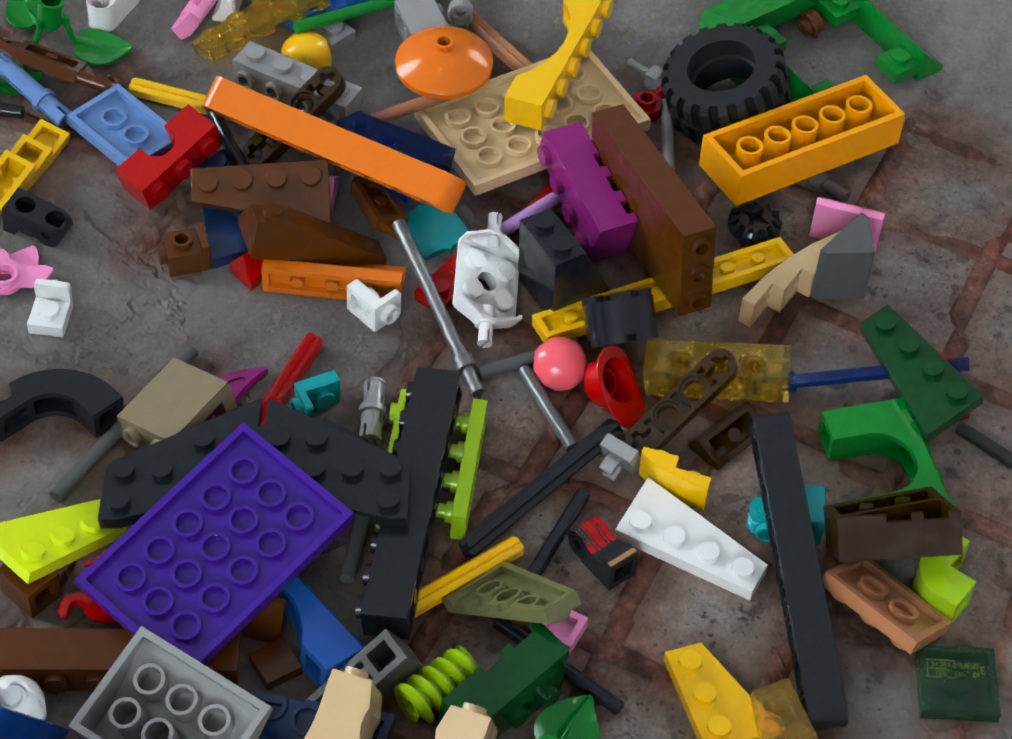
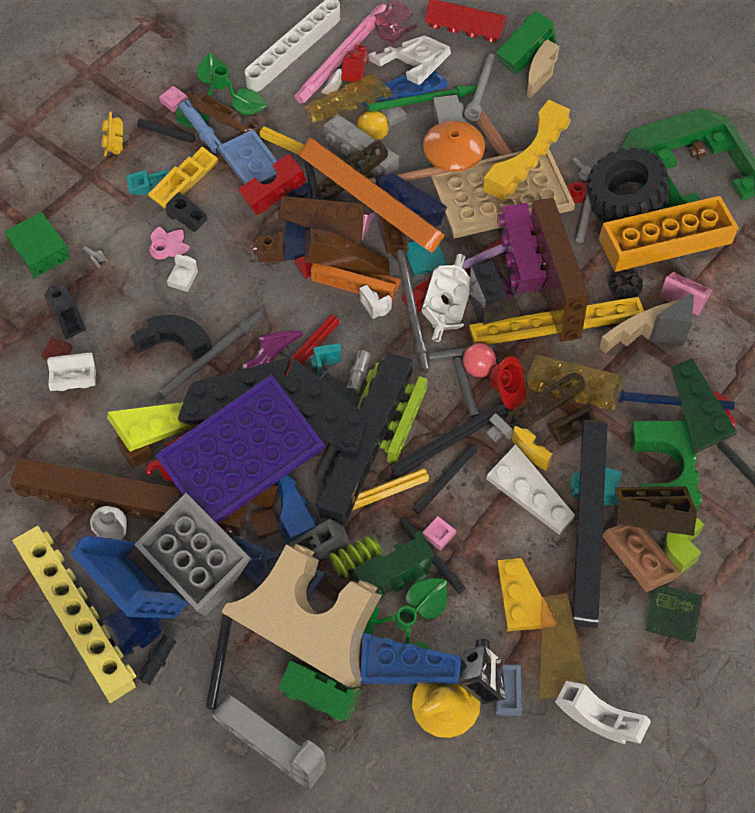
camera: 15 degrees right, 10 degrees up
(173, 403) = (240, 349): dark tan panel -> none
(513, 595) = (411, 510): olive wing -> none
(603, 552) = (475, 488): black leg -> none
(620, 317) = (520, 339): black brick -> none

